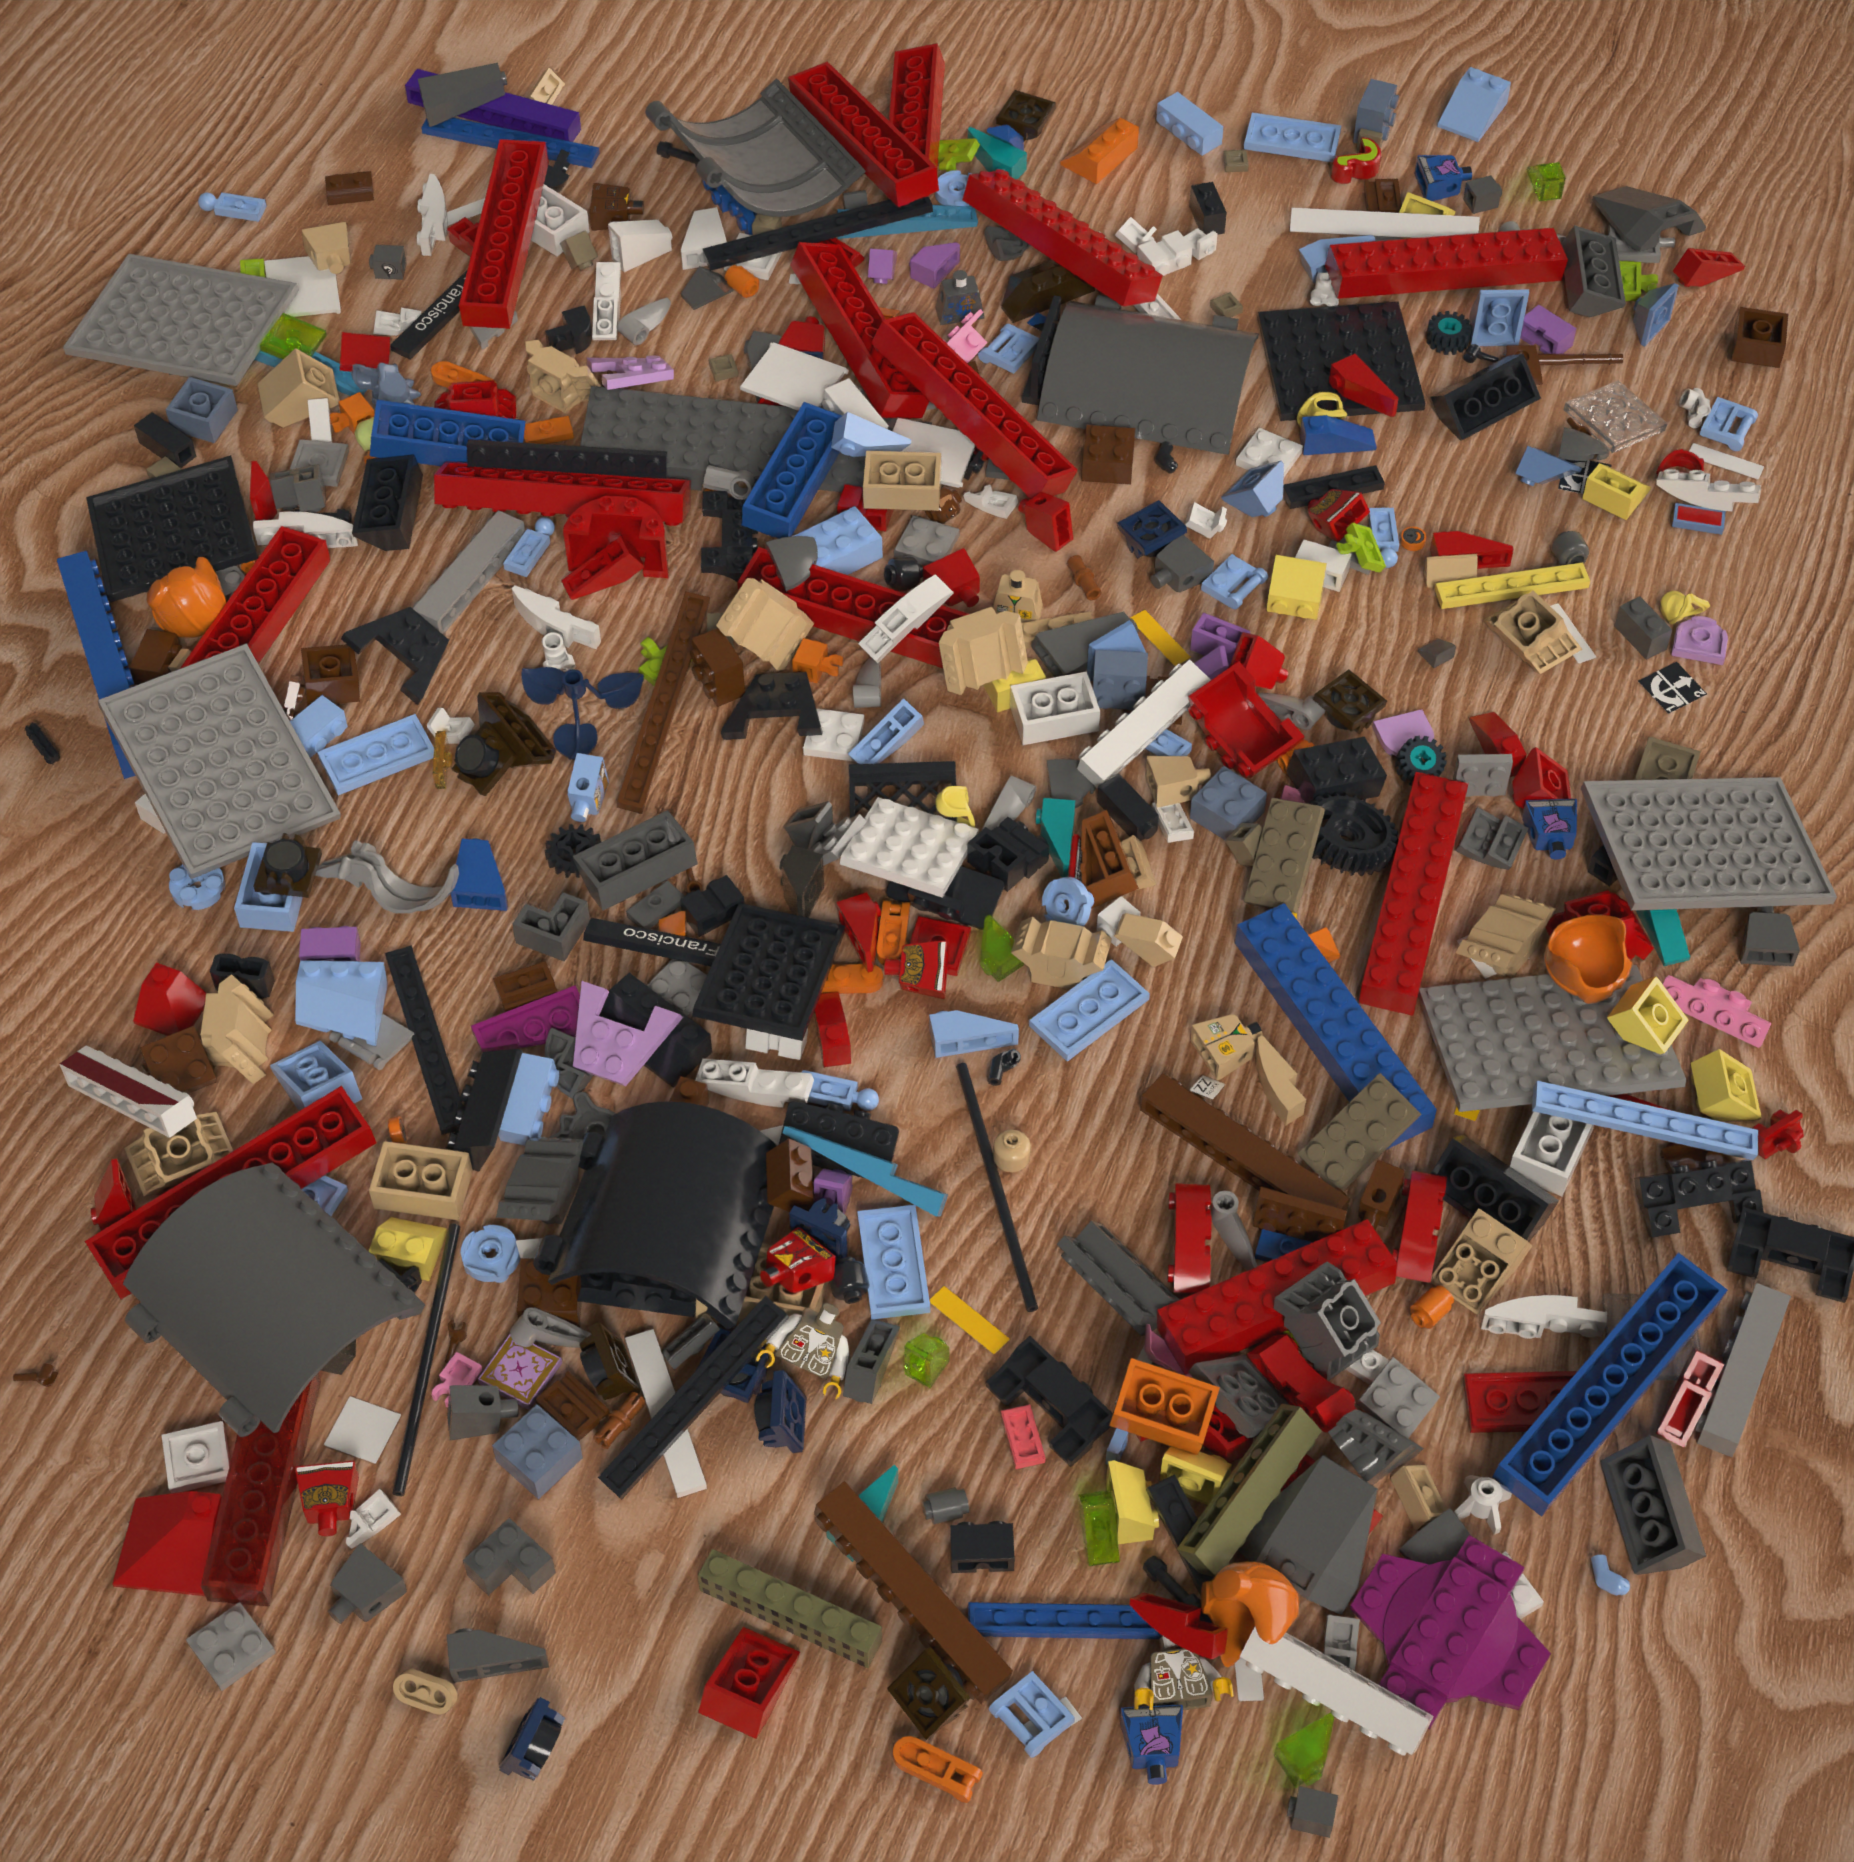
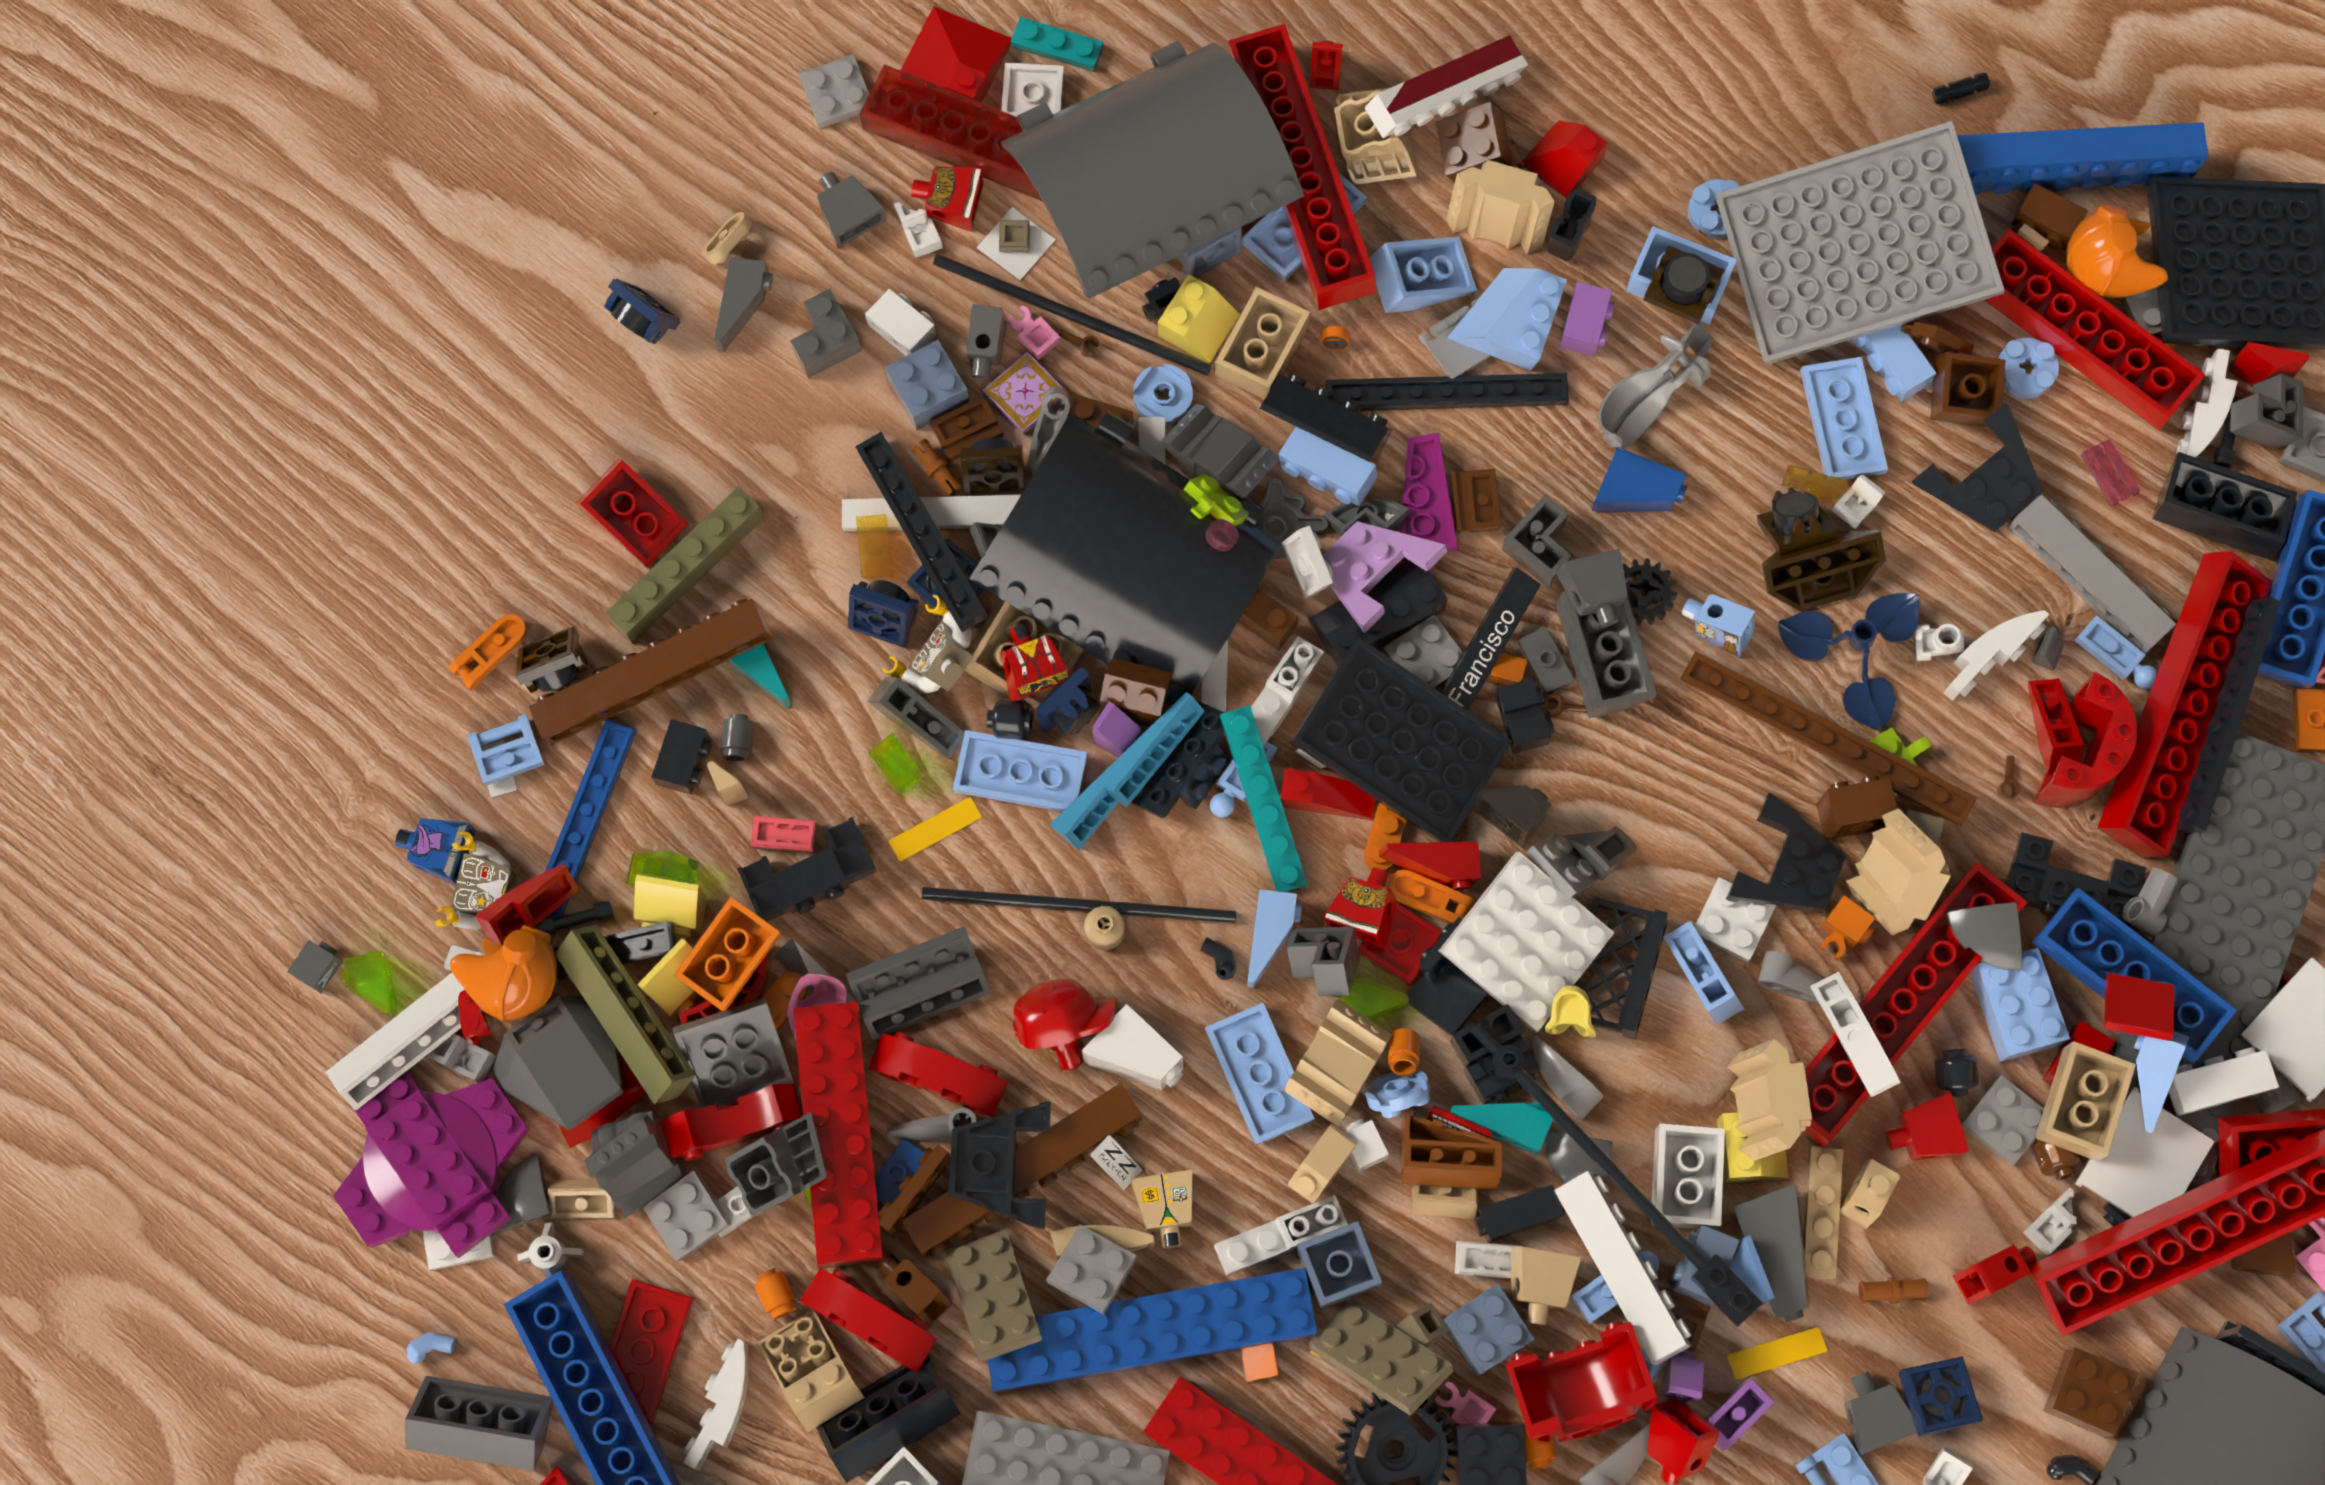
camera: 110 degrees right, 20 degrees up
(134, 1455) = (1057, 44): none -> teal plate
(285, 641) = (2039, 355): none -> light blue plate
(356, 1429) = (1014, 235): none -> dark tan tile
(378, 585) = (2100, 478): none -> clear pink tile
(479, 1496) = (900, 323): none -> white brick
(540, 587) = (2049, 649): none -> dark grey slope
(587, 862) = (1595, 585): none -> dark grey torso
(597, 1154) = (1214, 500): none -> lime plate
(628, 1082) = (1307, 562): none -> white plate
(630, 1135) = (1222, 535): none -> clear pink tile
(662, 593) = (2009, 778): none -> reddish brown hand
(716, 1448) = (874, 546): none -> clear yellow plate
(825, 447) = (2139, 1006): none -> red tile
(853, 1062) = (1263, 799): none -> teal plate
(973, 974) = (1325, 955): none -> dark grey brick
(998, 1490) = (727, 785): none -> tan slope
(1034, 906) = (1404, 1051): none -> orange brick
(1106, 1147) = (1057, 1017): none -> red piece
(1108, 1094) = (1134, 1052): none -> white slope
(1129, 655) = (1712, 1276): none -> black bar
(1212, 958) = (1279, 1235): none -> white slope
(1220, 906) = (1338, 1265): none -> sand blue brick
(1252, 1164) = (984, 1164): none -> black wing
(1307, 1065) = (1091, 1269): none -> light grey plate
(1310, 1630) = (472, 1020): none -> red helmet

